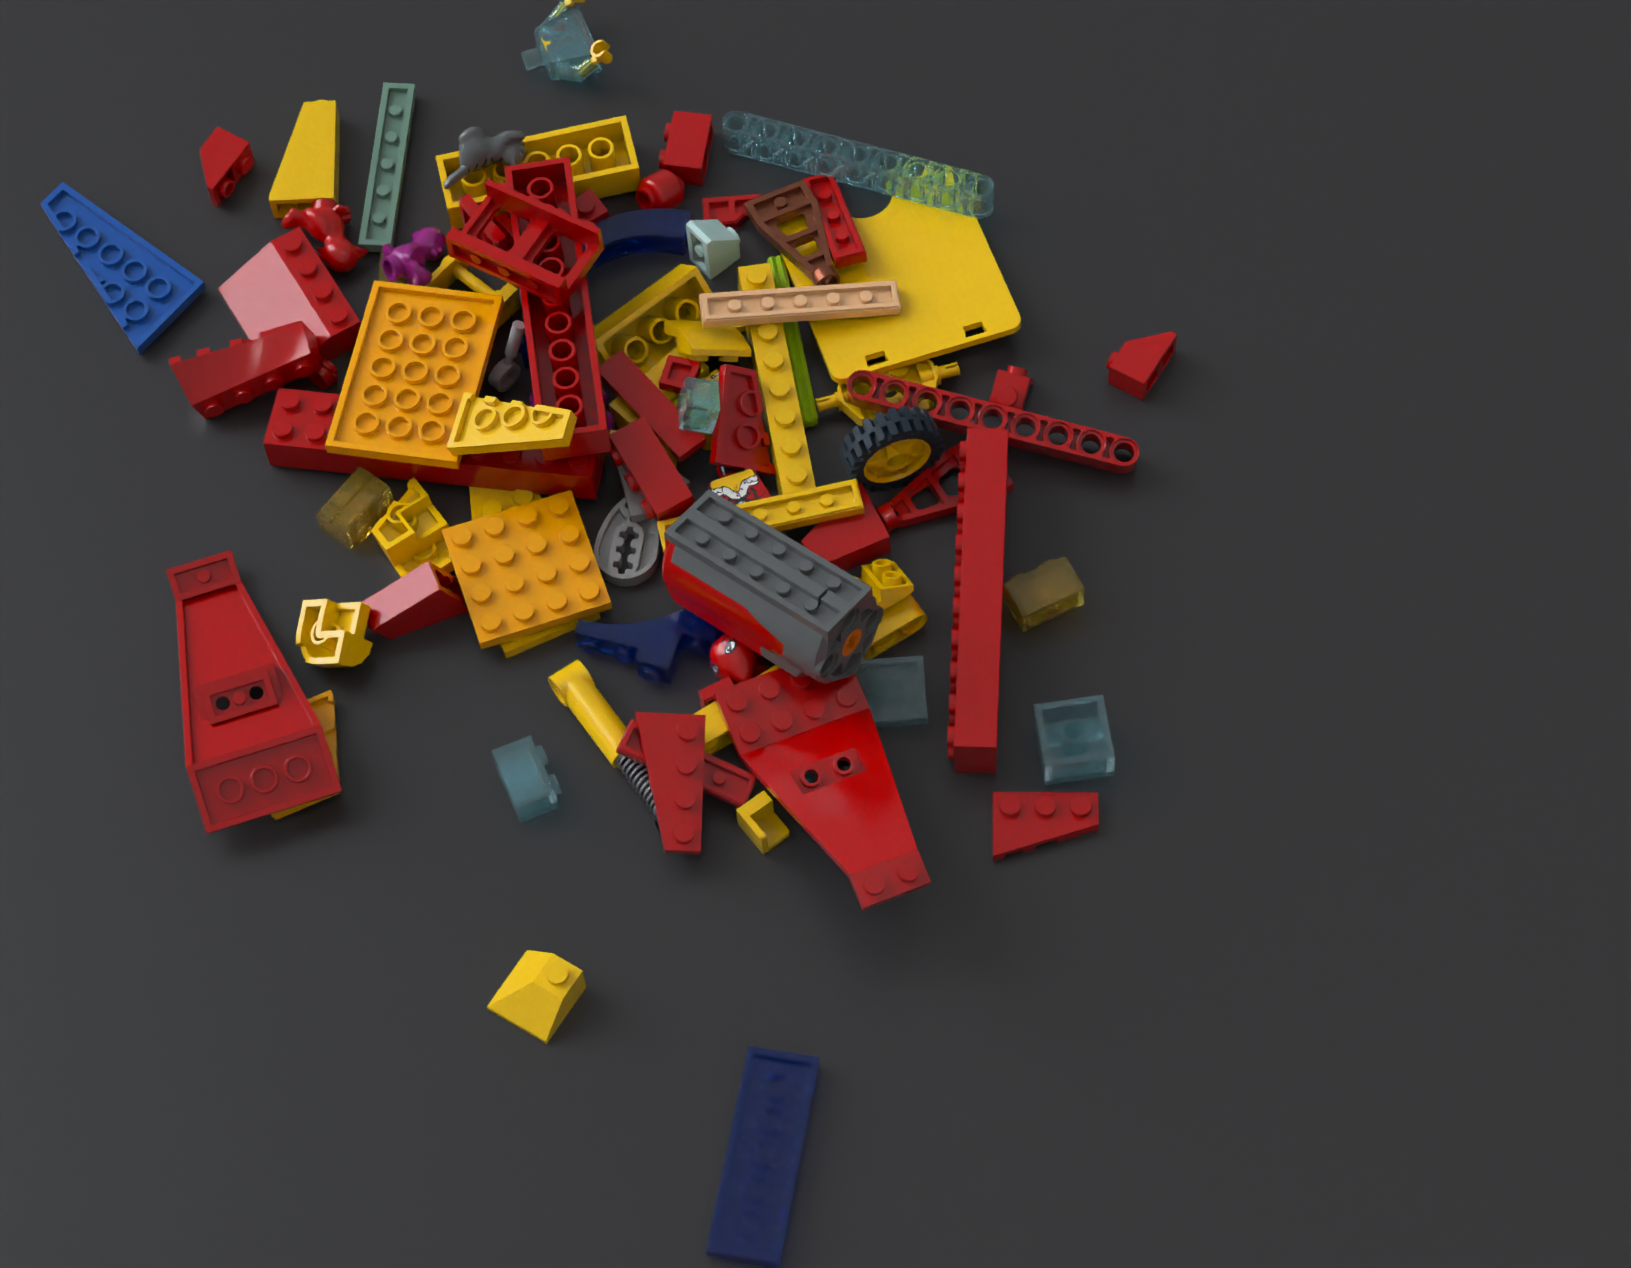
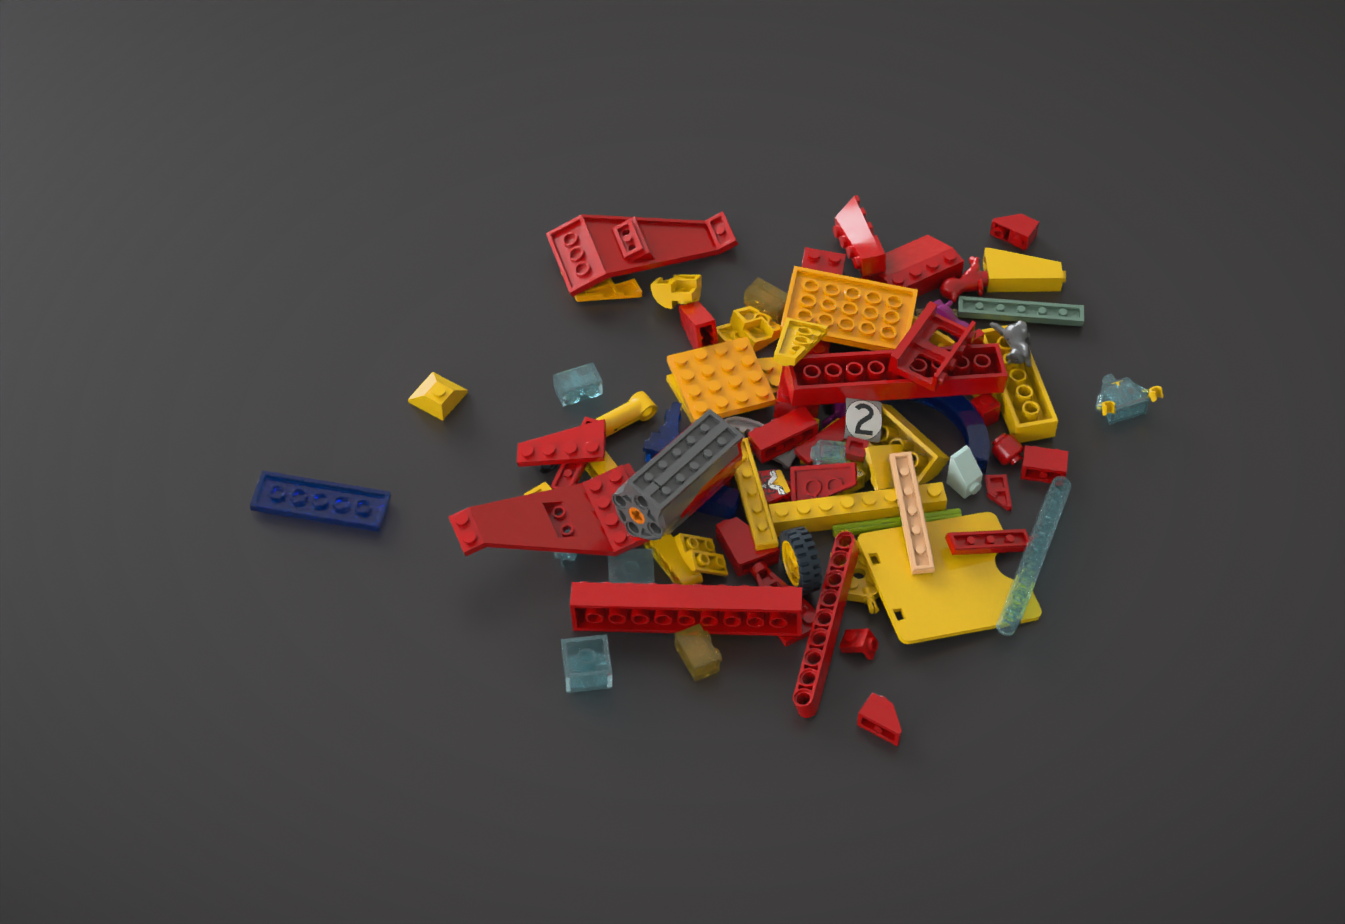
camera: 85 degrees right, 10 degrees down
(131, 275) = (938, 190): blue wing -> none
(627, 360) = (863, 419): none -> sticker
(783, 206) = (993, 506): copper plate -> none
(1036, 818) = (536, 650): red wing -> none

